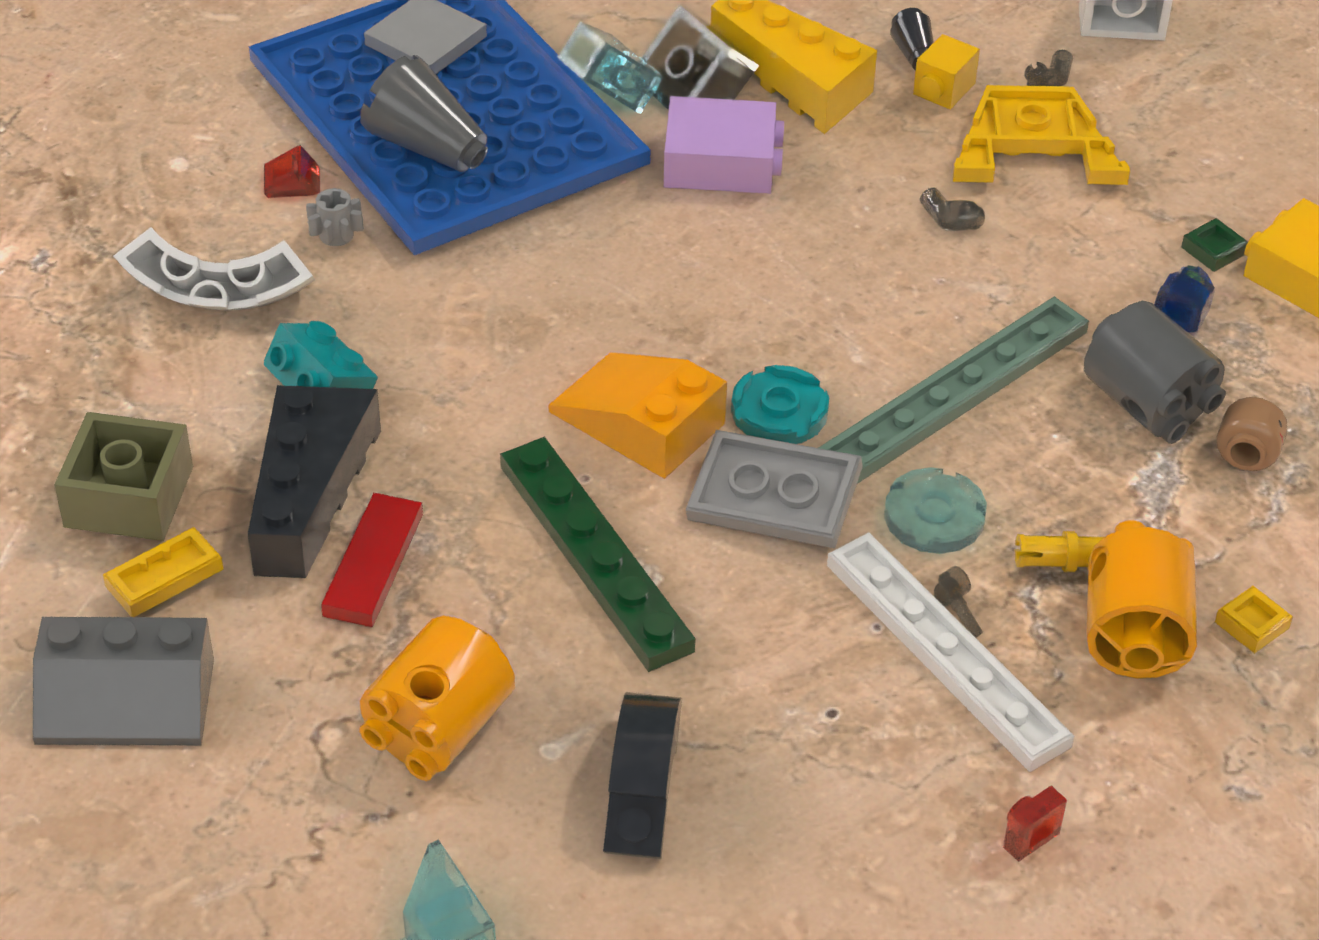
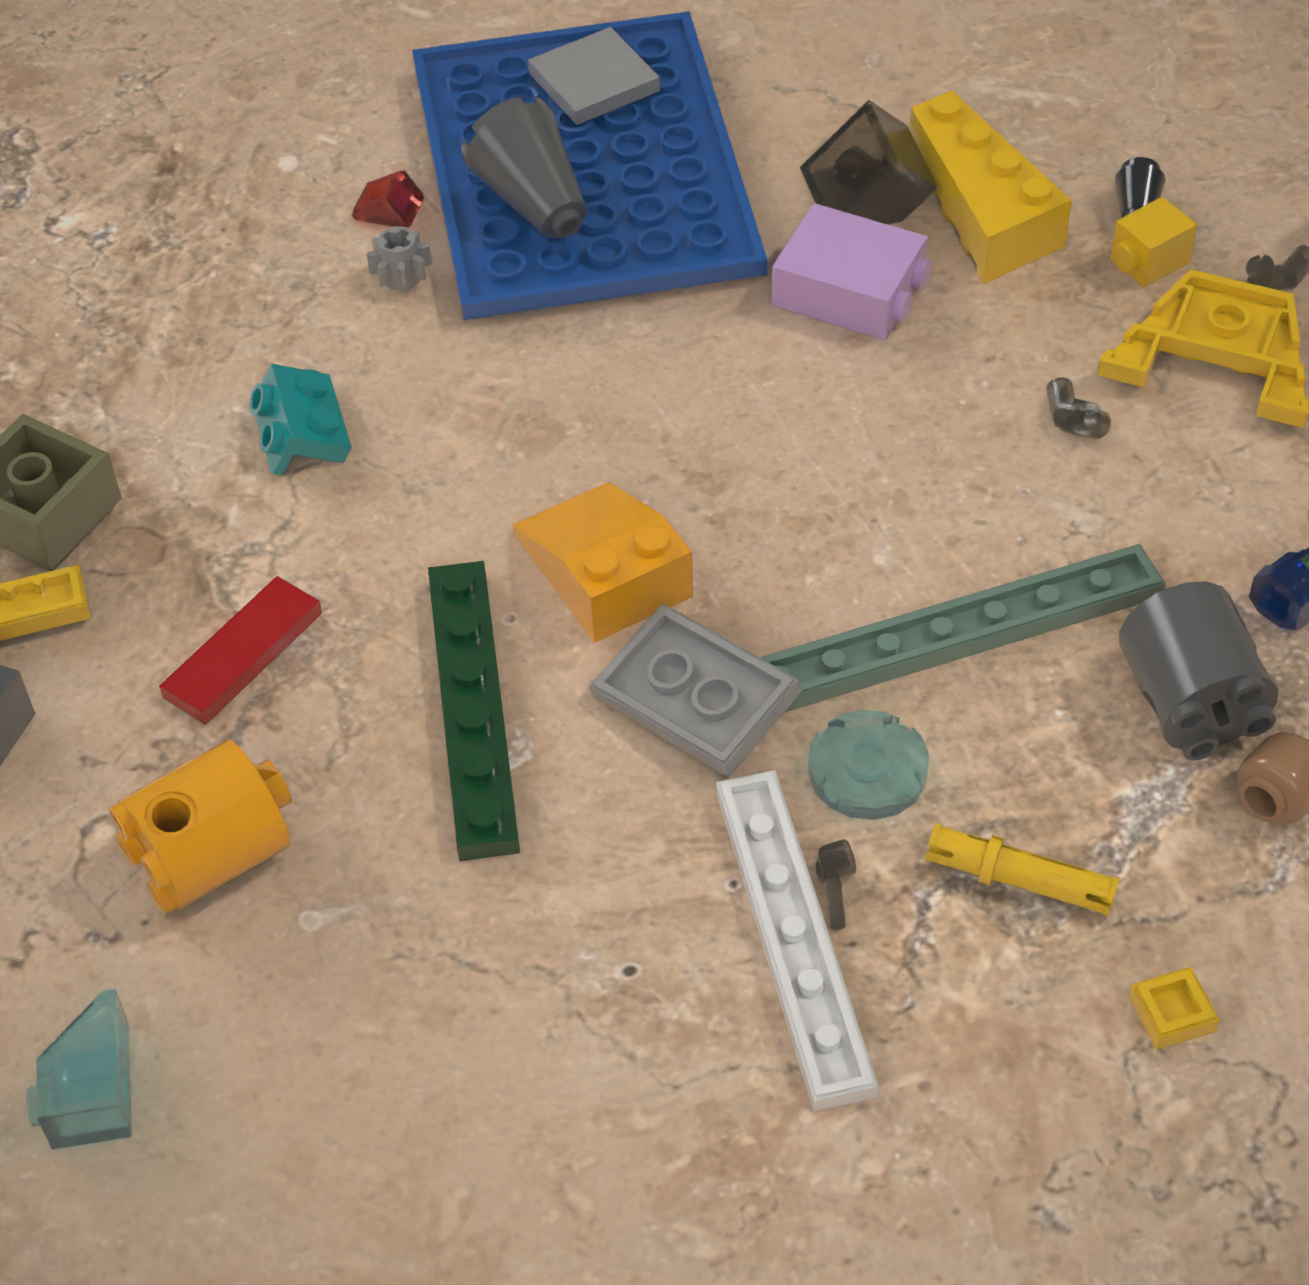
camera: 25 degrees right, 5 degrees up
(213, 285) = (204, 283): white brick -> none
(307, 464) = (214, 537): black wedge -> none
(610, 66) = (772, 153): clear light blue slope -> none
(641, 774) = (367, 970): black arch -> none
(780, 404) = (760, 592): teal tile -> none
(1034, 822) = (771, 1178): clear red plate -> none
(1142, 601) = (1029, 949): light orange cylinder -> none

